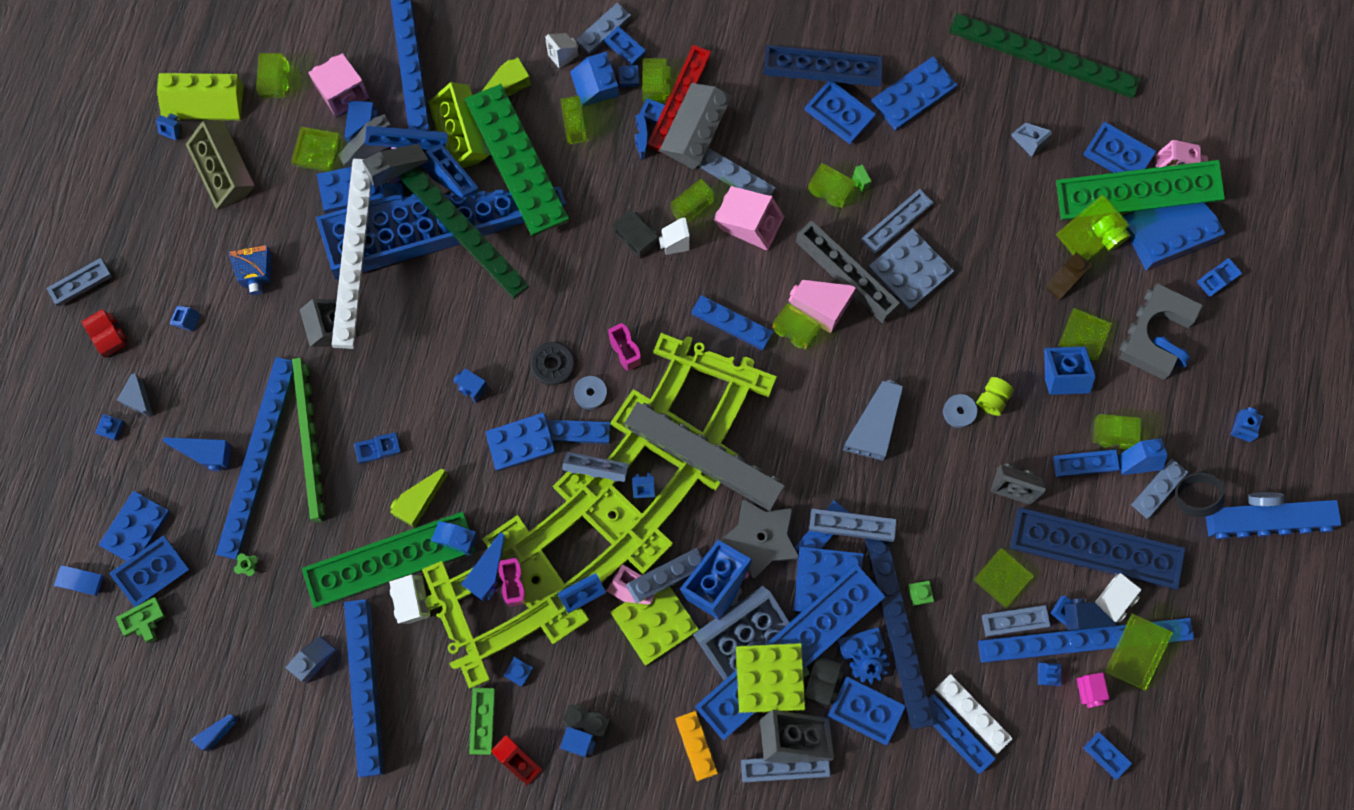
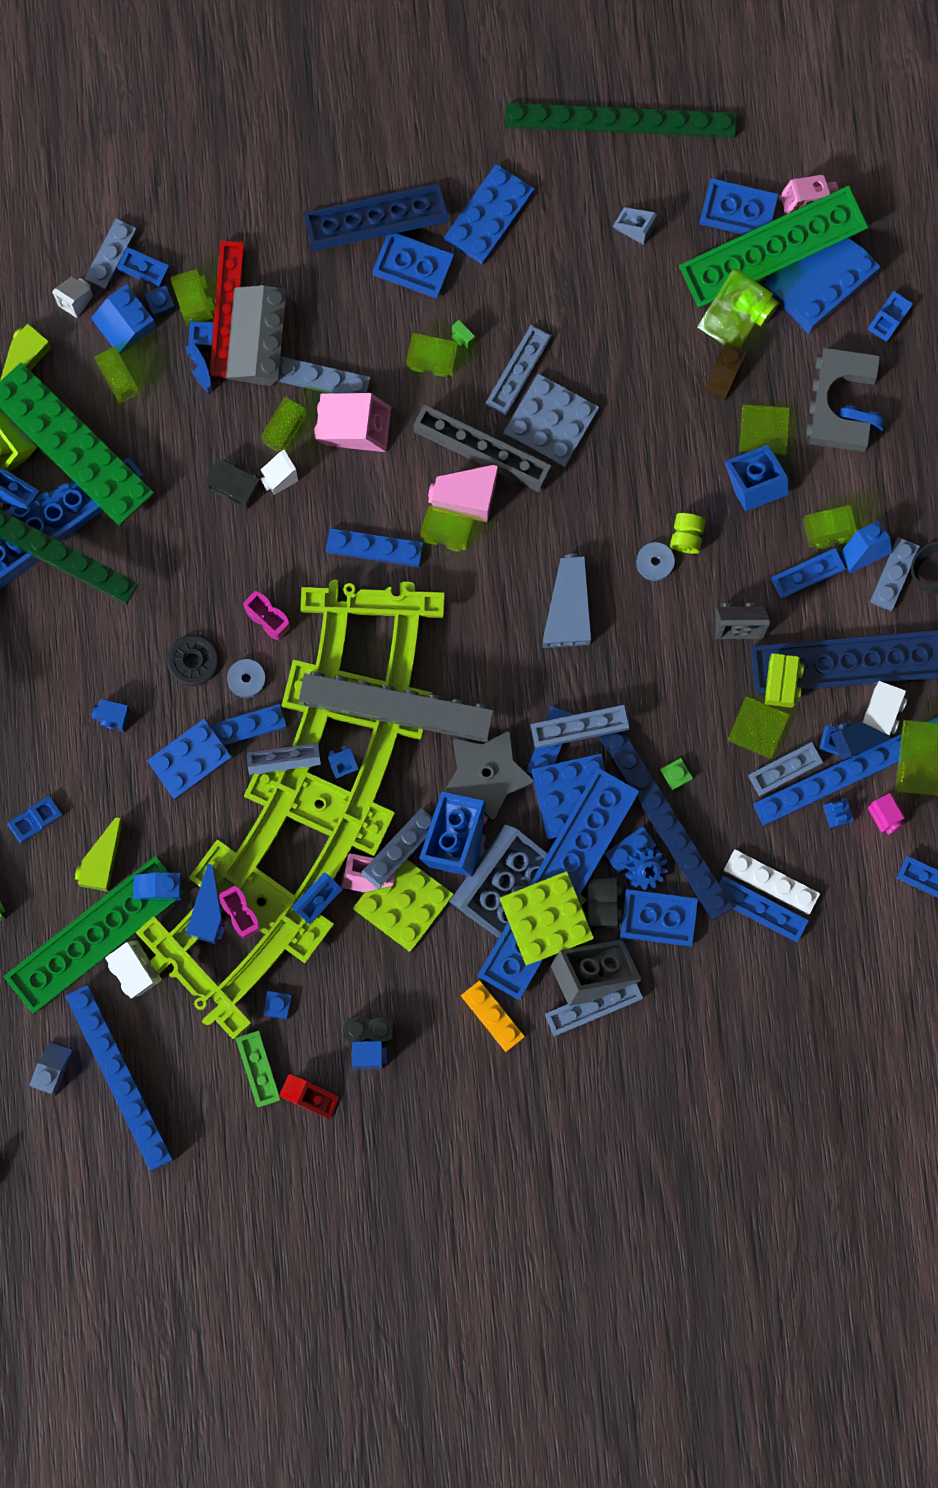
camera: 20 degrees left, 5 degrees up
(1038, 544) = (783, 680): none -> lime brick

